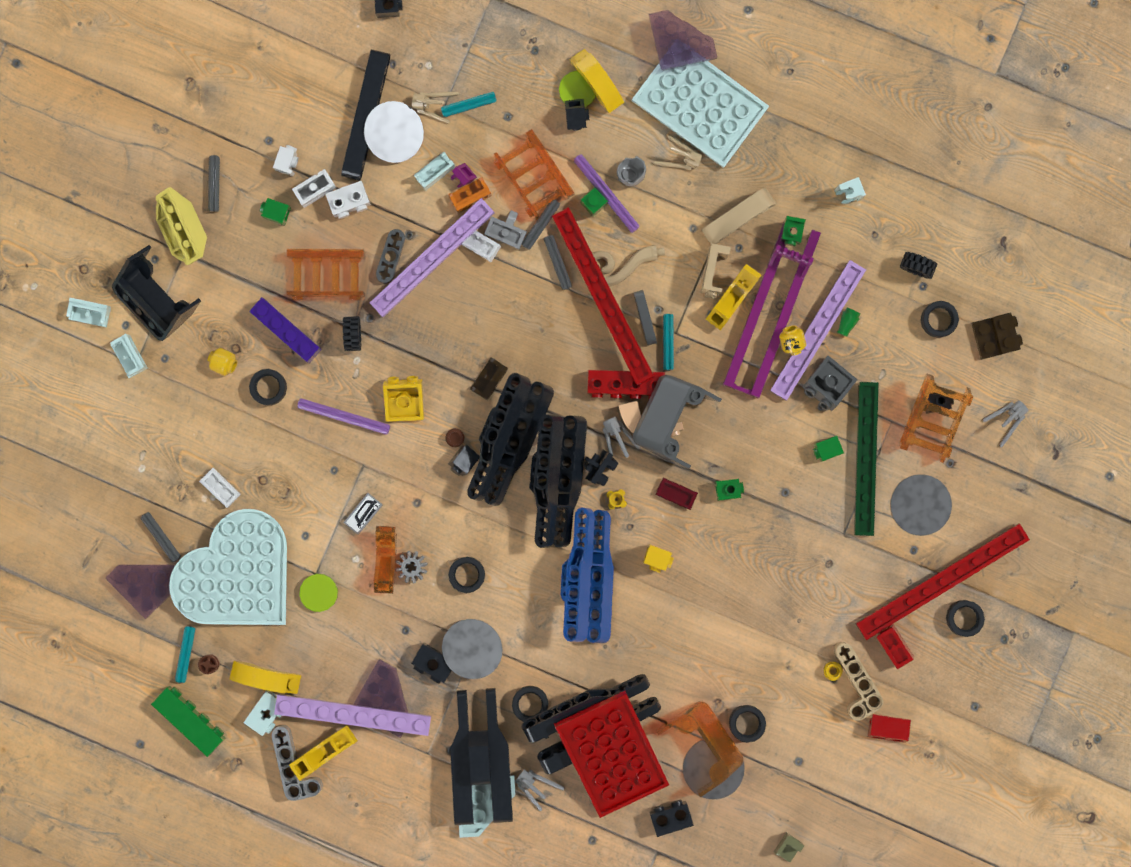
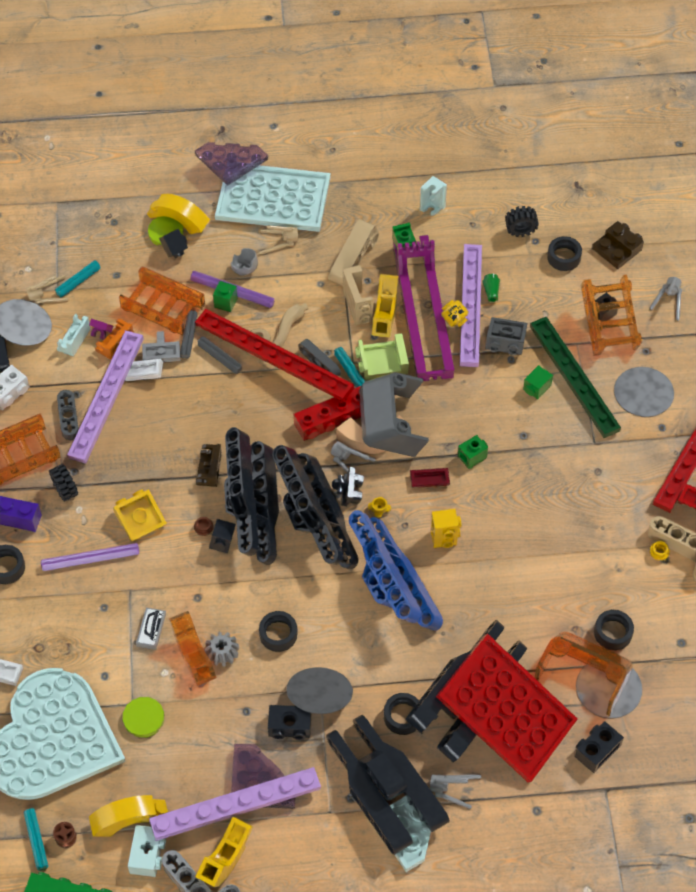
camera: 30 degrees left, 30 degrees down
(703, 346) = (382, 358): none -> yellowish green panel

